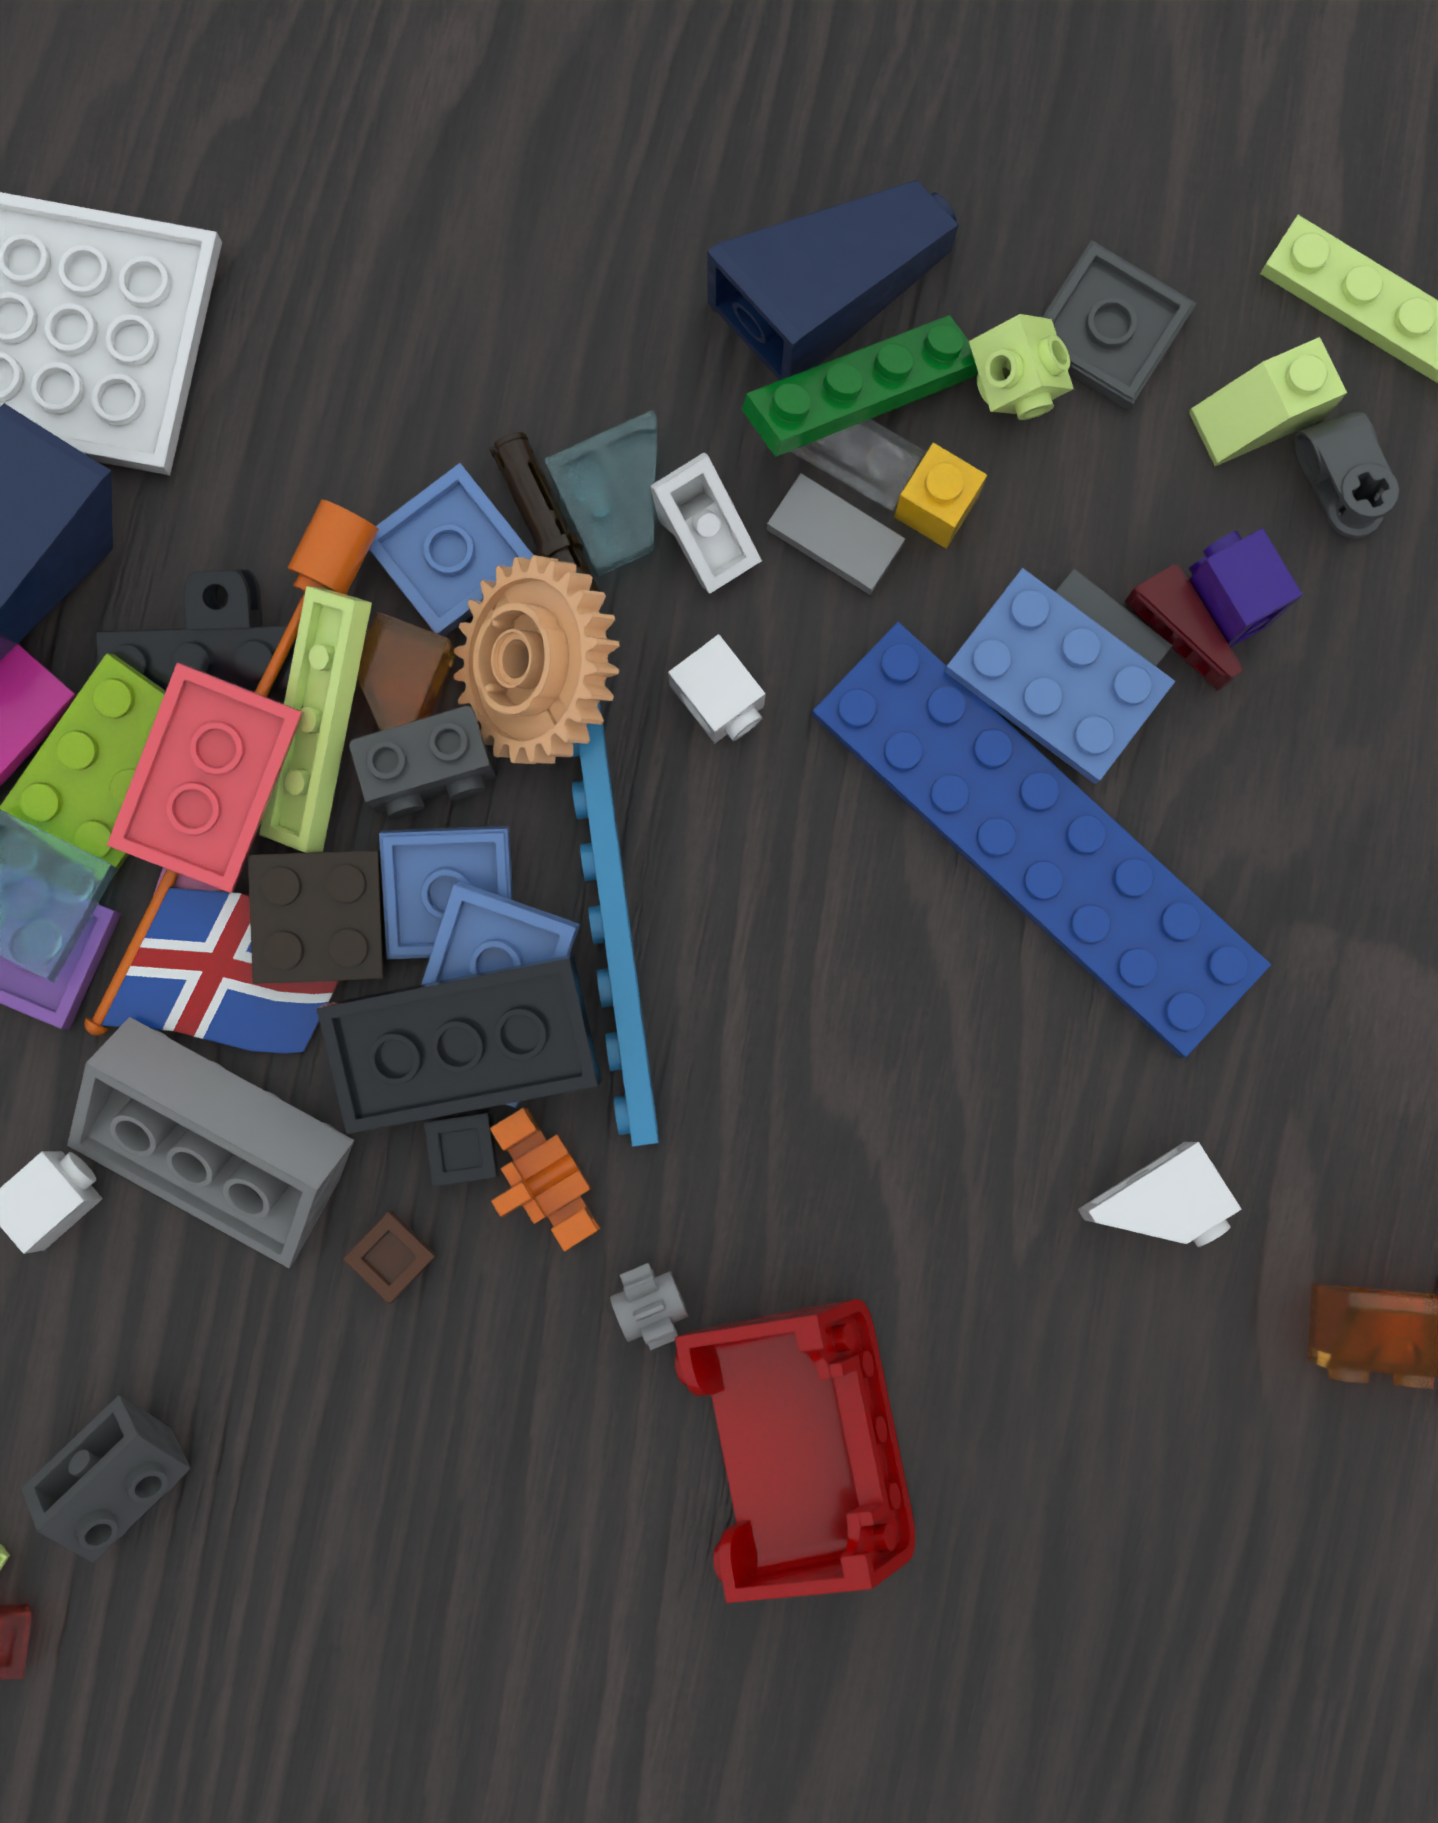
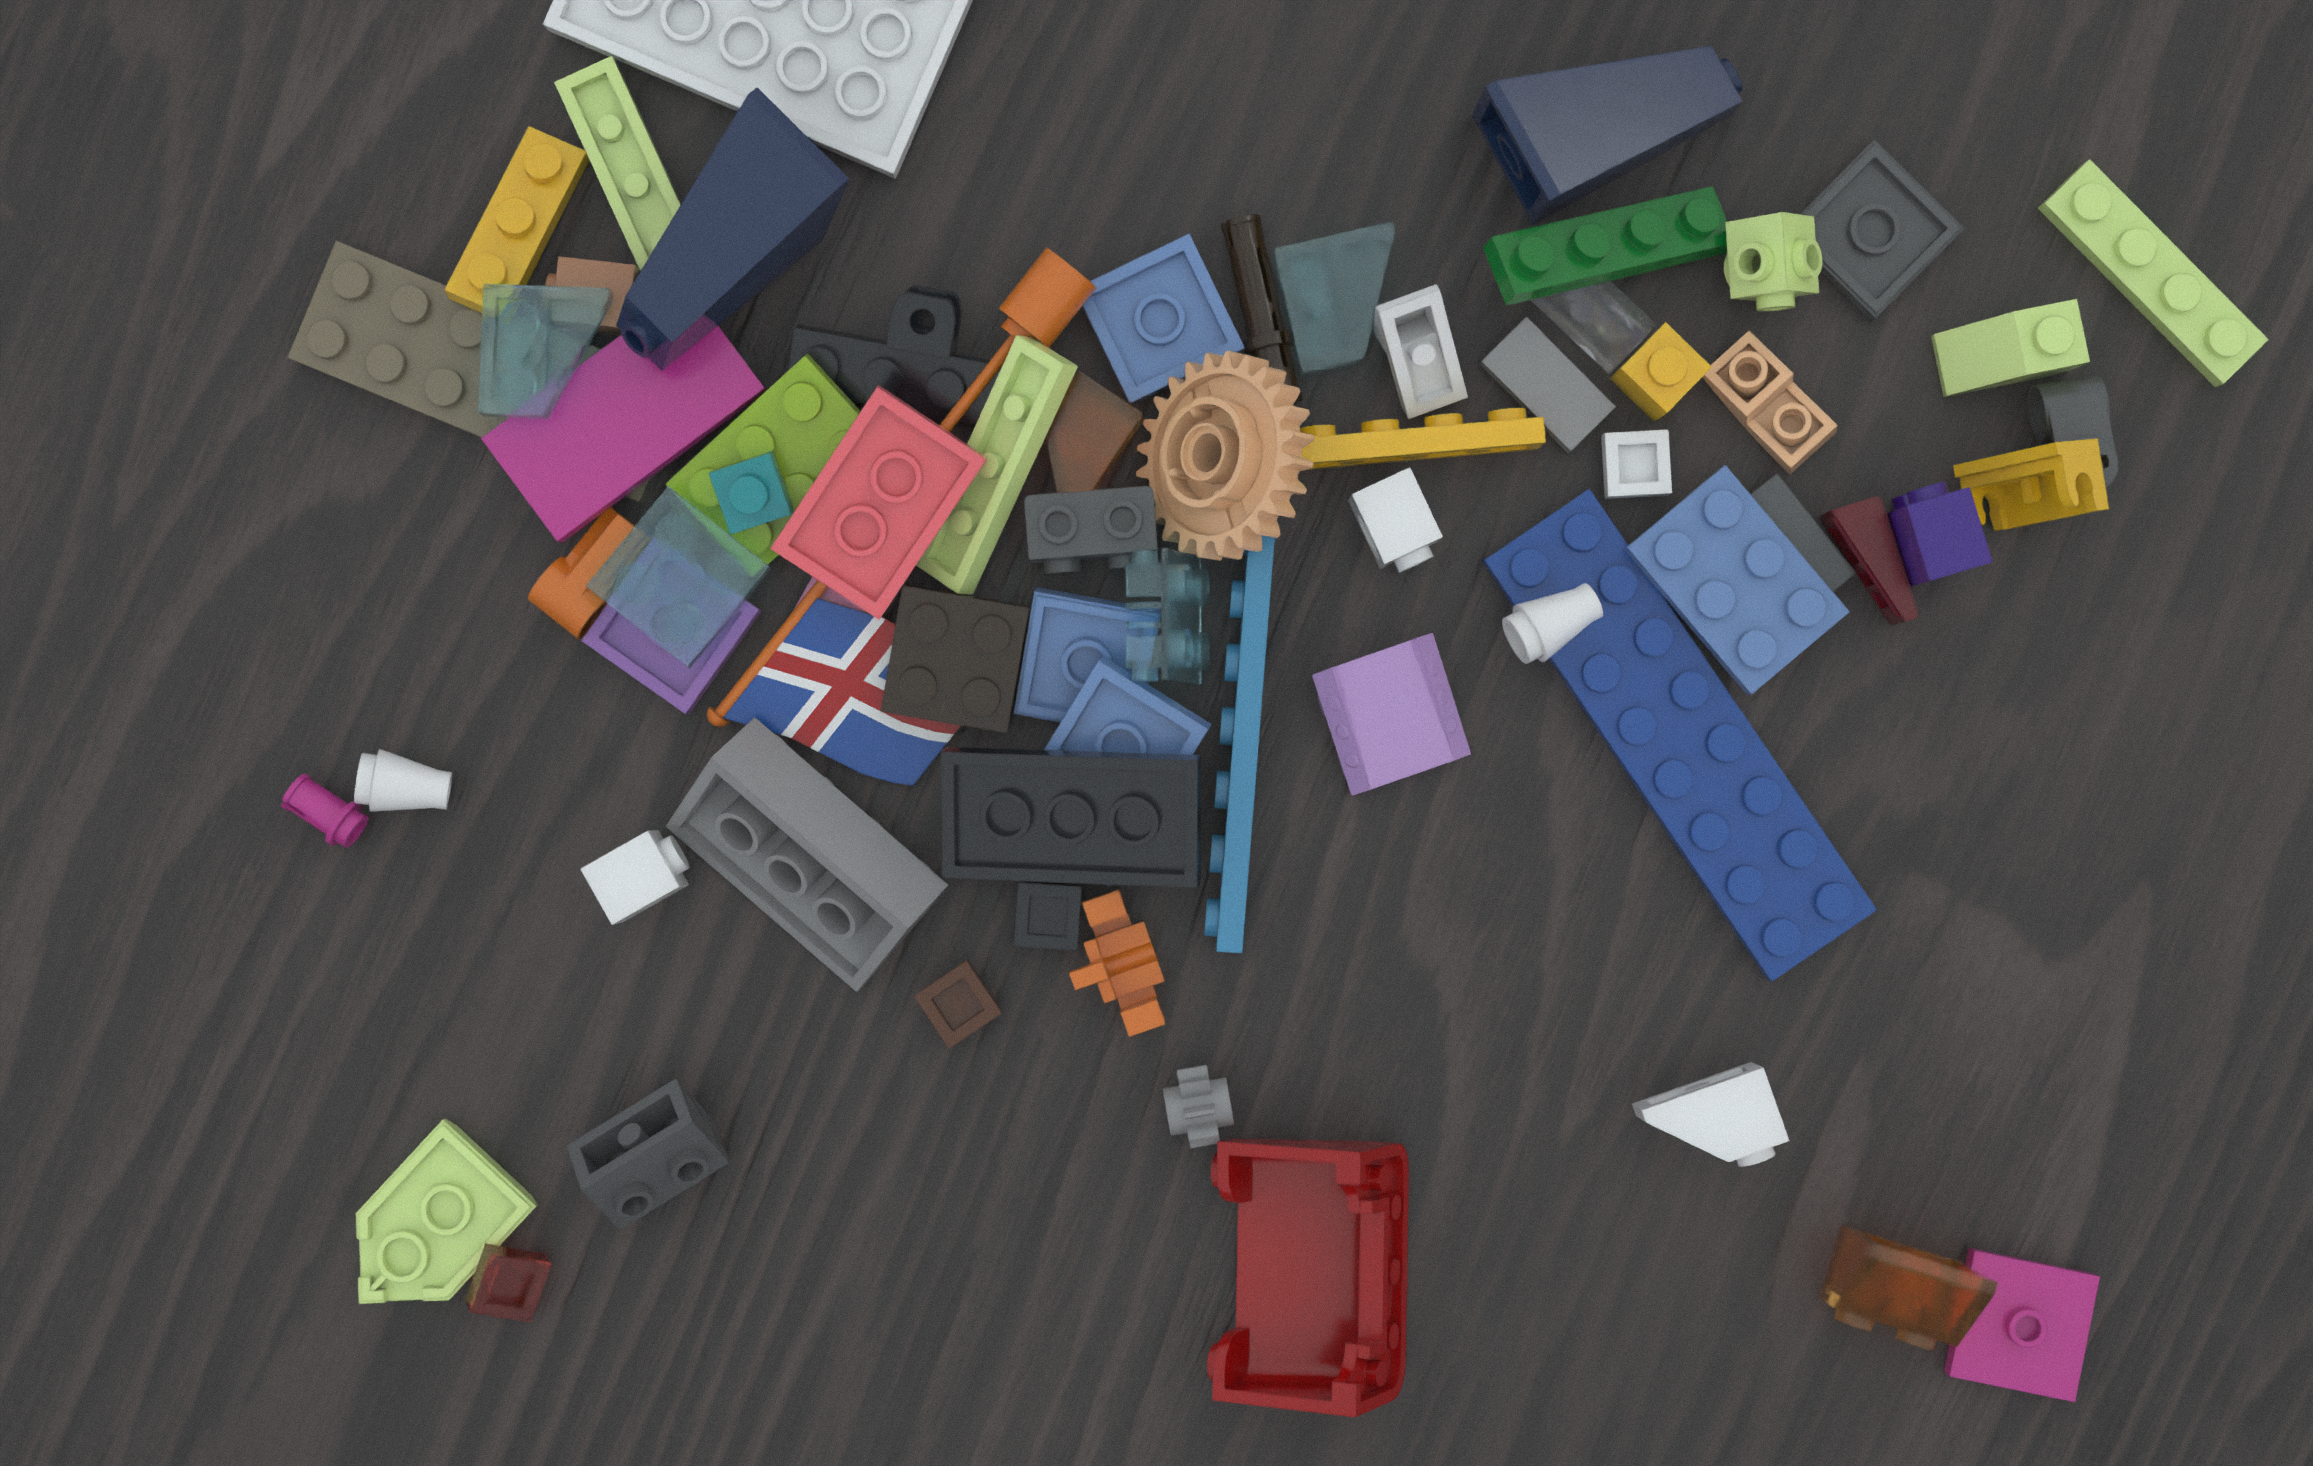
camera: 15 degrees right, 5 degrees up
(79, 796) = (751, 492): none -> teal plate
(524, 801) = (1183, 590): none -> clear light blue hinge
(742, 605) = (1440, 438): none -> yellow plate
(755, 877) = (1391, 714): none -> lavender slope
(887, 753) = (1550, 622): none -> white cone
(937, 588) = (1636, 464): none -> white plate
(1050, 506) = (1769, 403): none -> light nougat slope
(1327, 516) = (2037, 483): none -> yellow hinge

